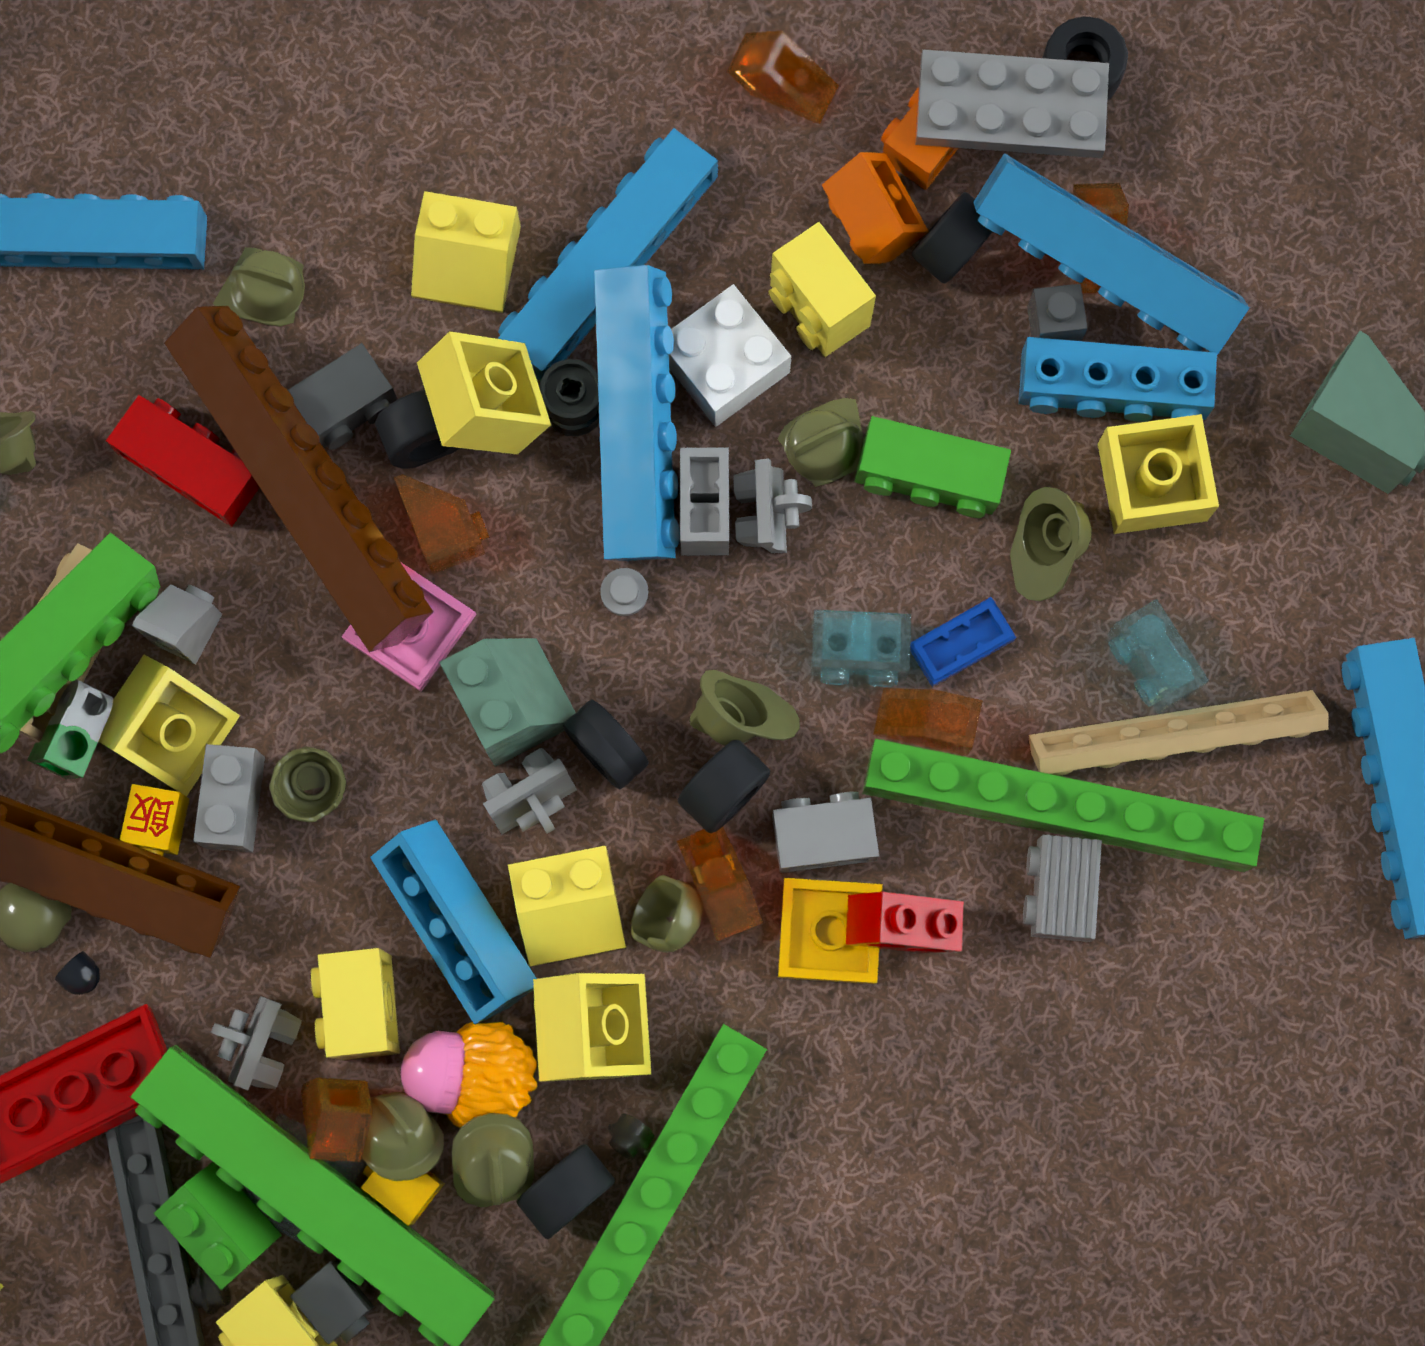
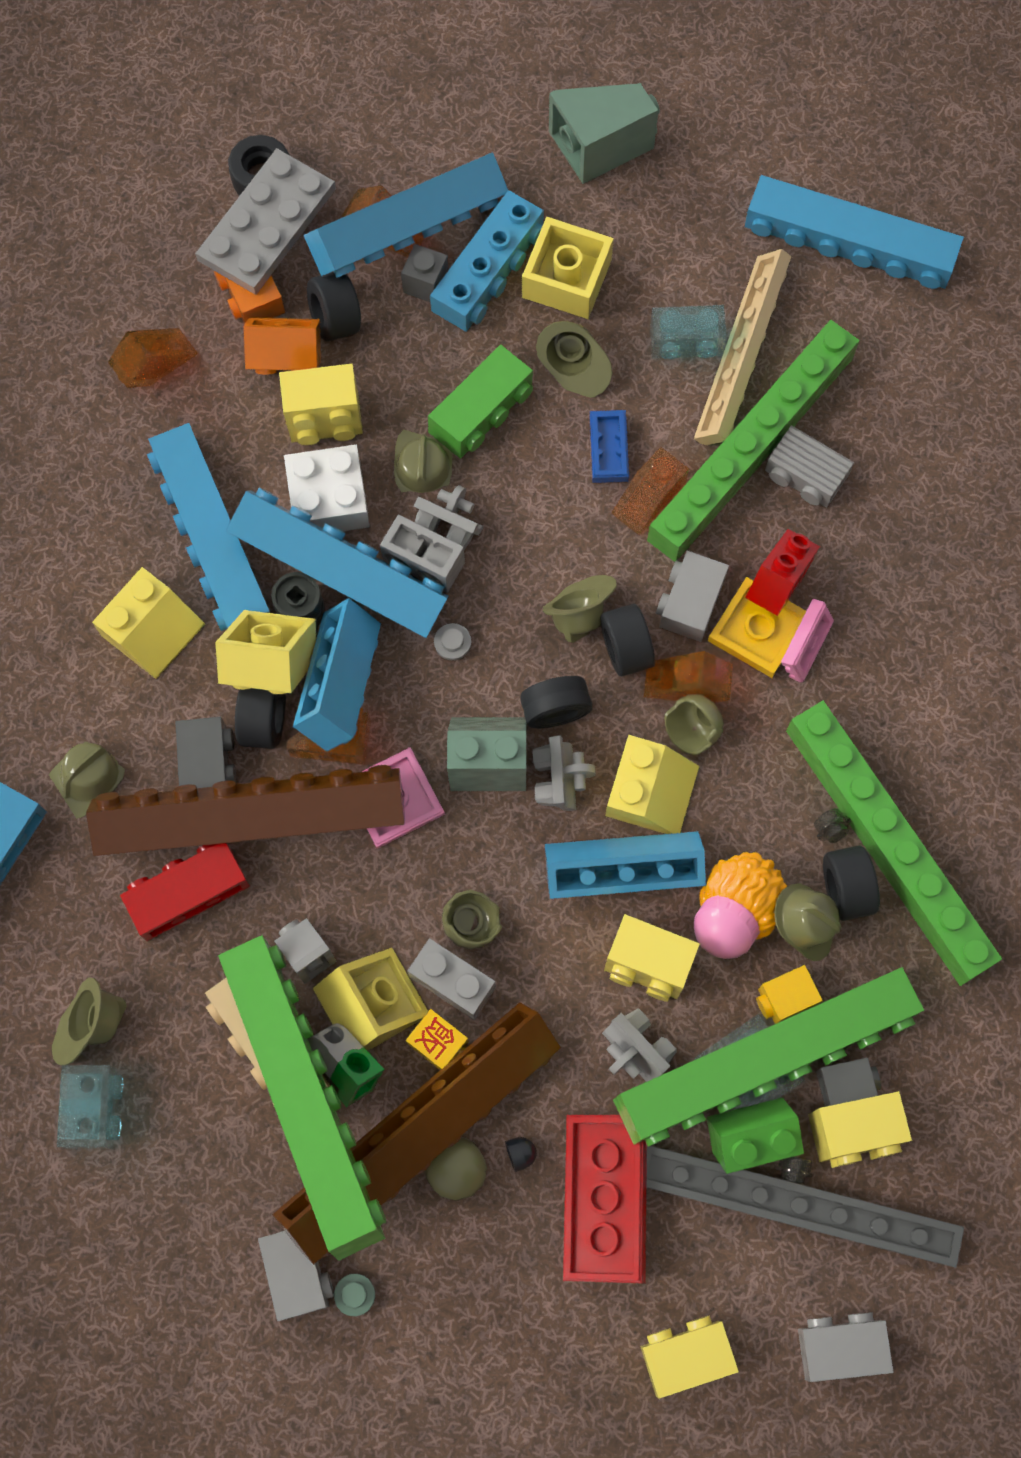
camera: 60 degrees left, 5 degrees down
(336, 1118) = (724, 1008): clear orange slope -> none
(401, 1138) = (753, 980): olive piece -> none
(499, 486) = (337, 675): none -> dark azure brick
(591, 1026) = (749, 807): light yellow brick -> none
(842, 996) = (807, 640): none -> bright pink tile
(860, 646) = (577, 508): clear light blue brick -> none

